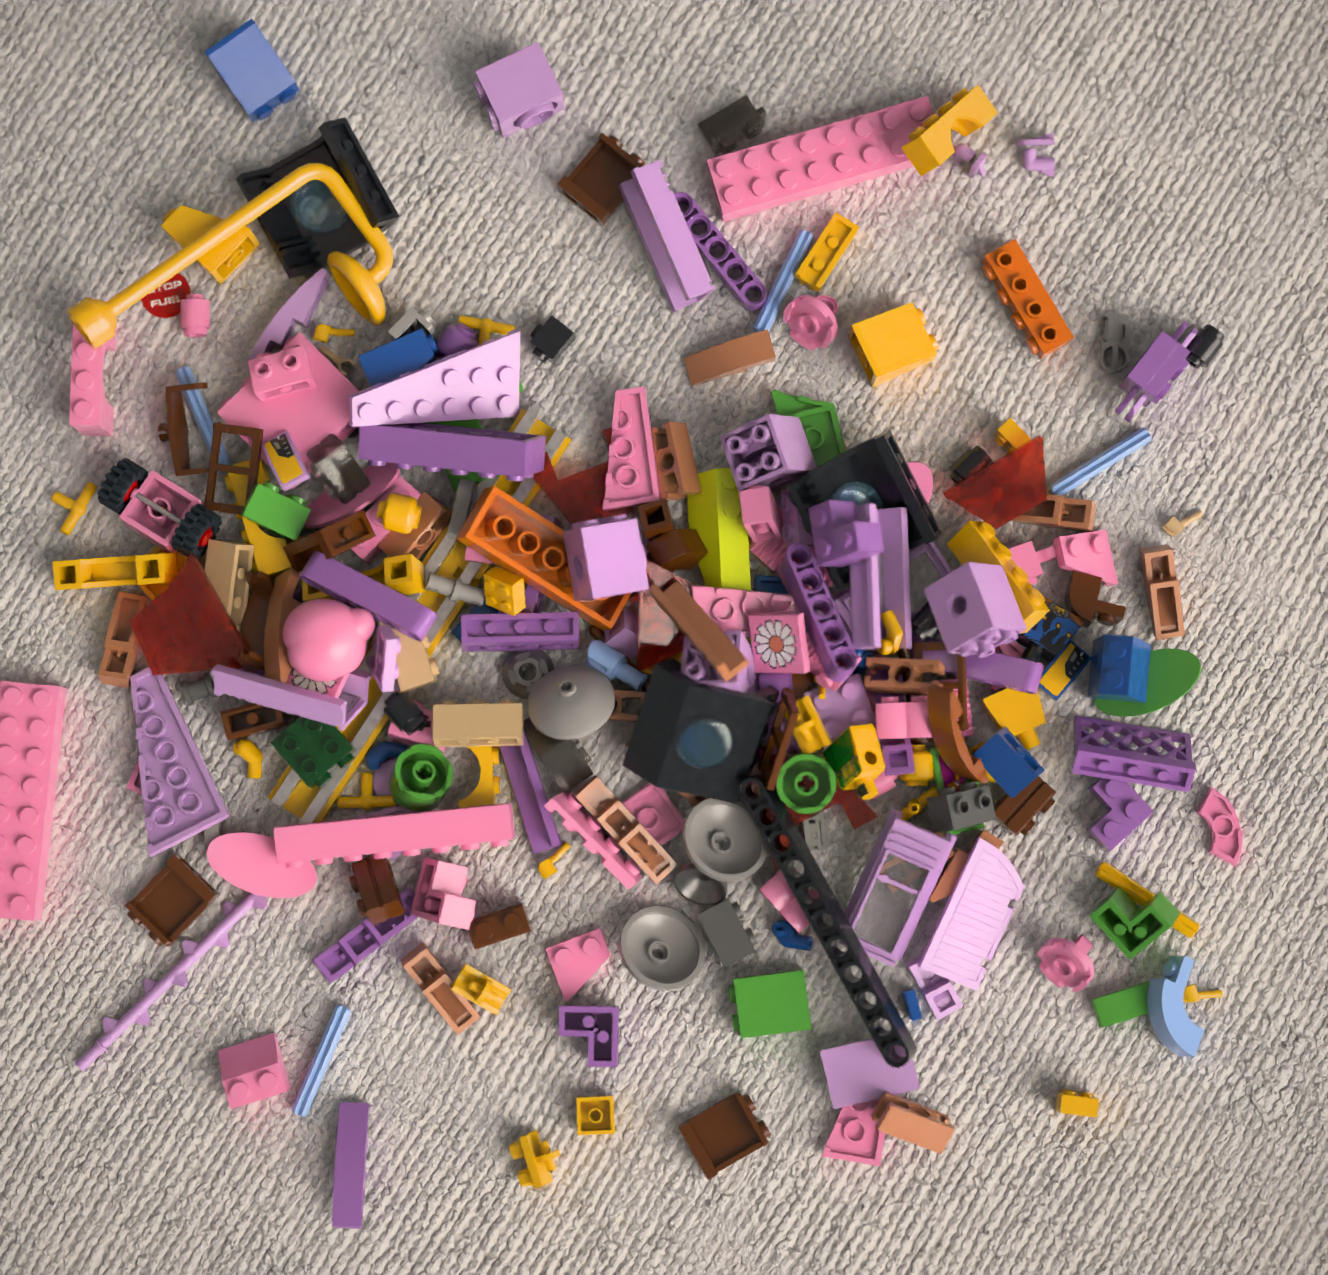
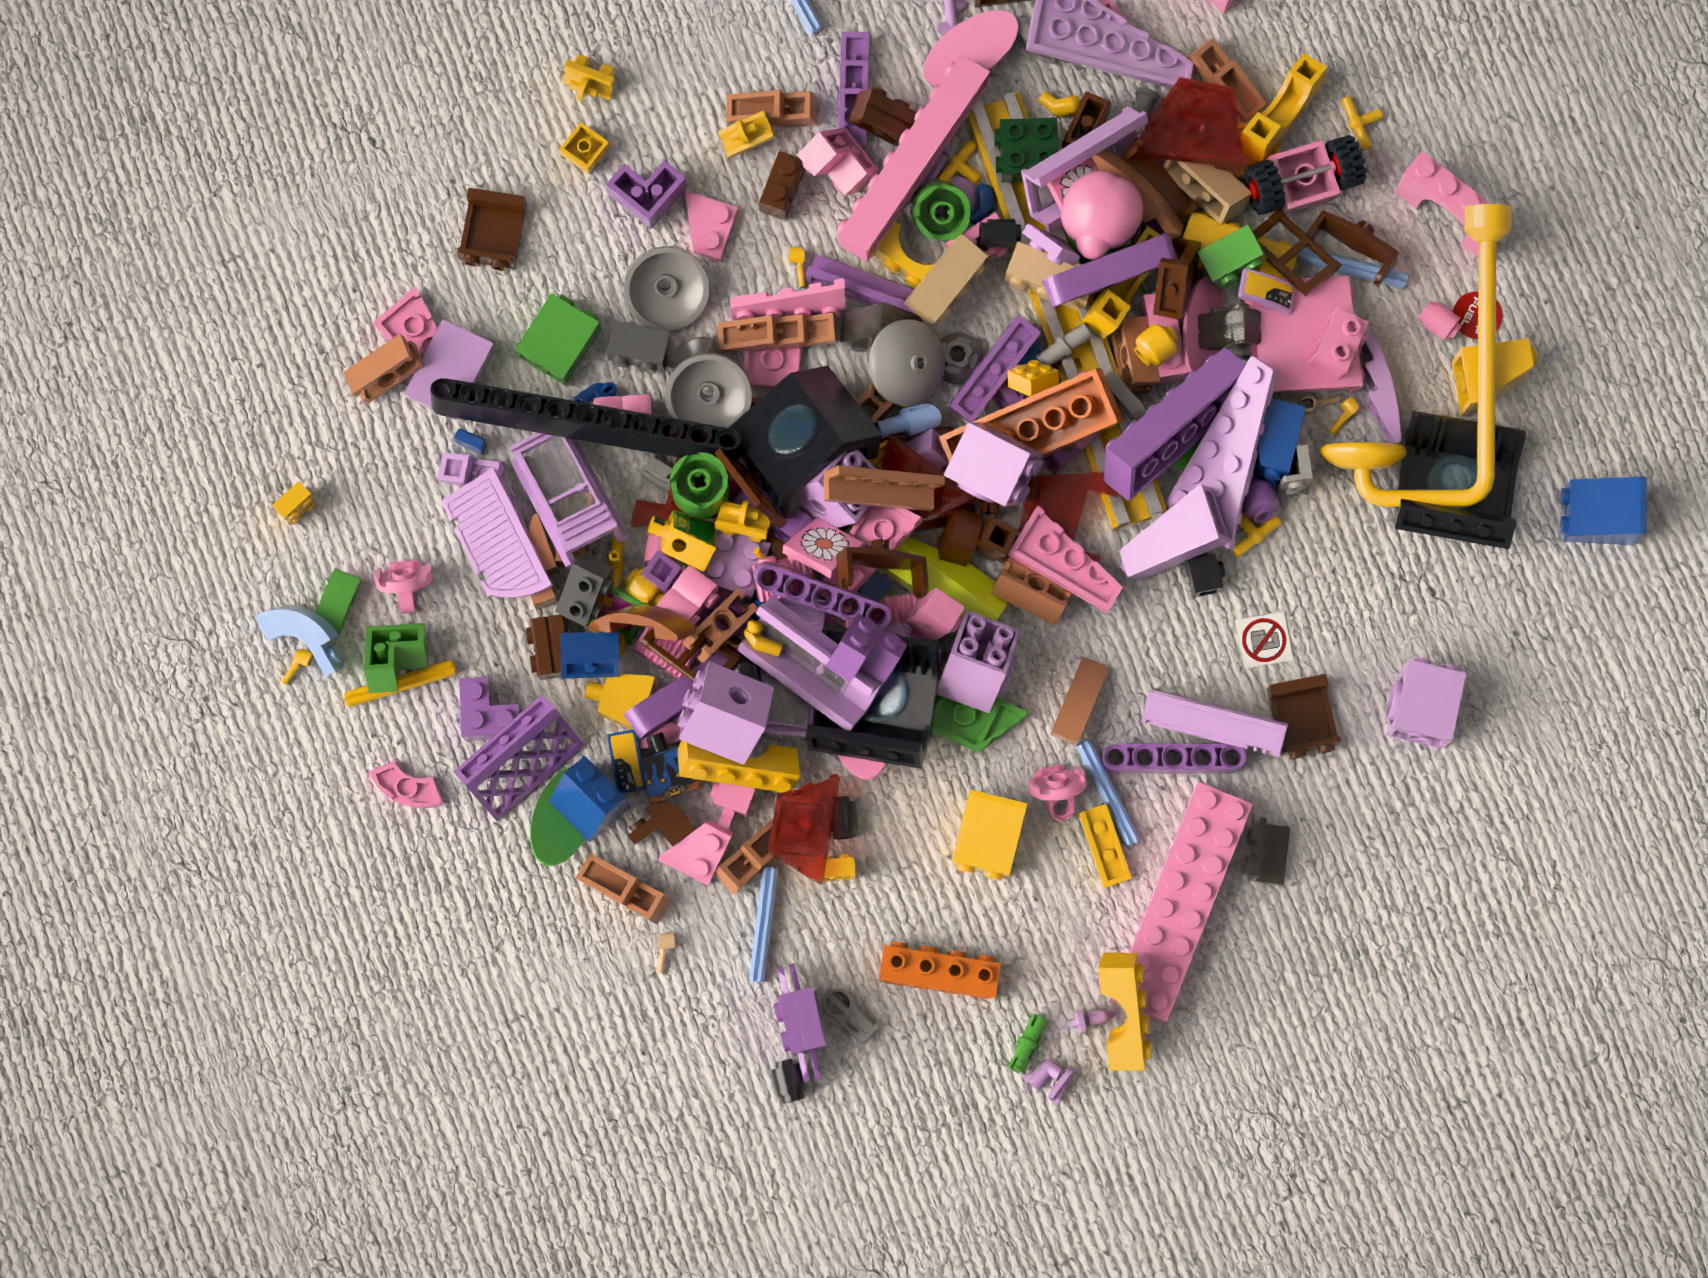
camera: 125 degrees right, 5 degrees down
(537, 377) = (1178, 535): none -> slope
(564, 258) = (1264, 640): none -> sticker
(750, 591) = (882, 557): none -> reddish brown piece
(1026, 191) = (1028, 1044): none -> bright green pin

